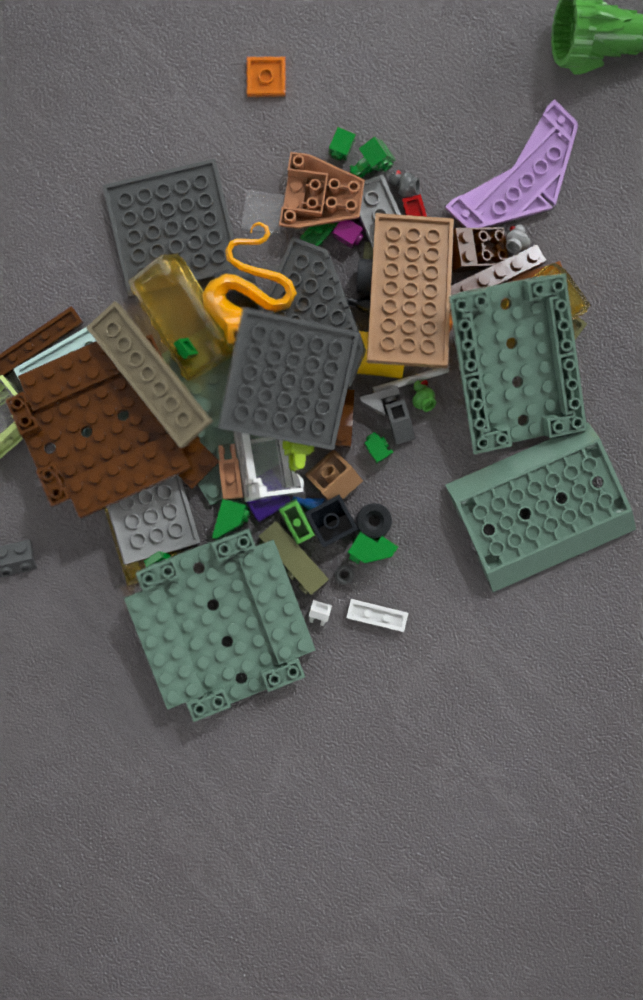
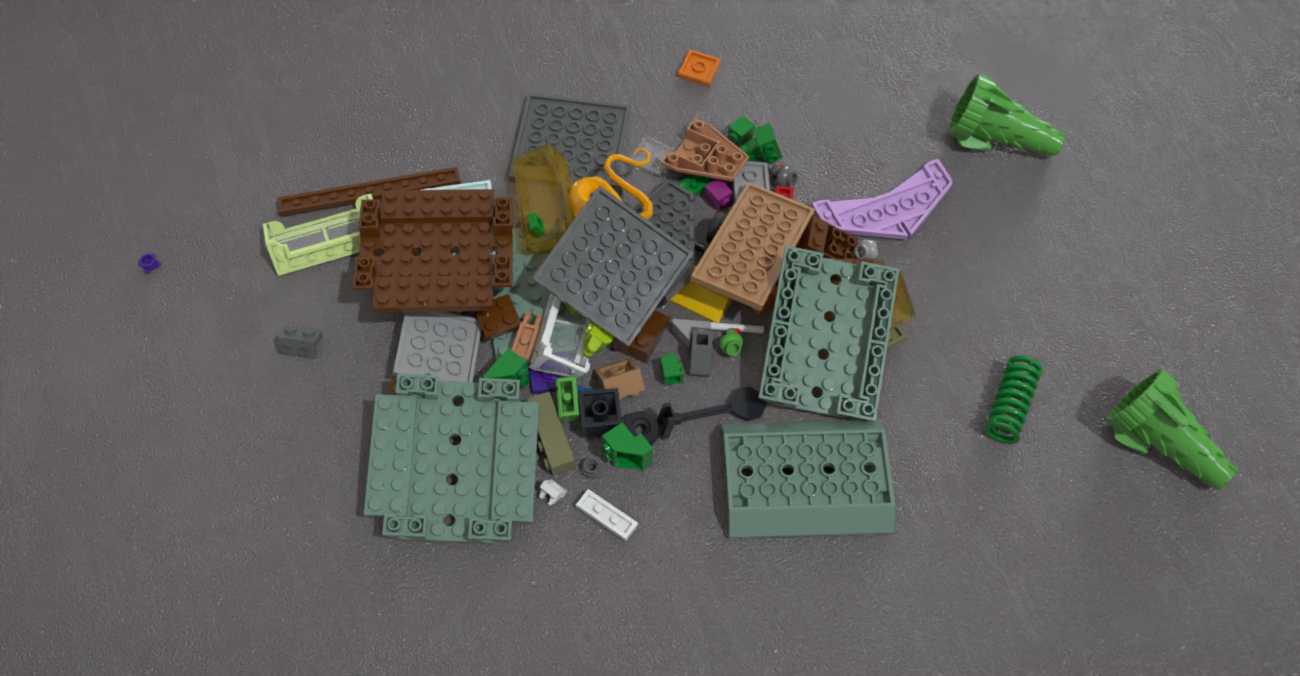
camera: 15 degrees right, 25 degrees down
(149, 374) = (493, 221): dark tan plate -> none
(457, 456) = (743, 404): none -> black piece

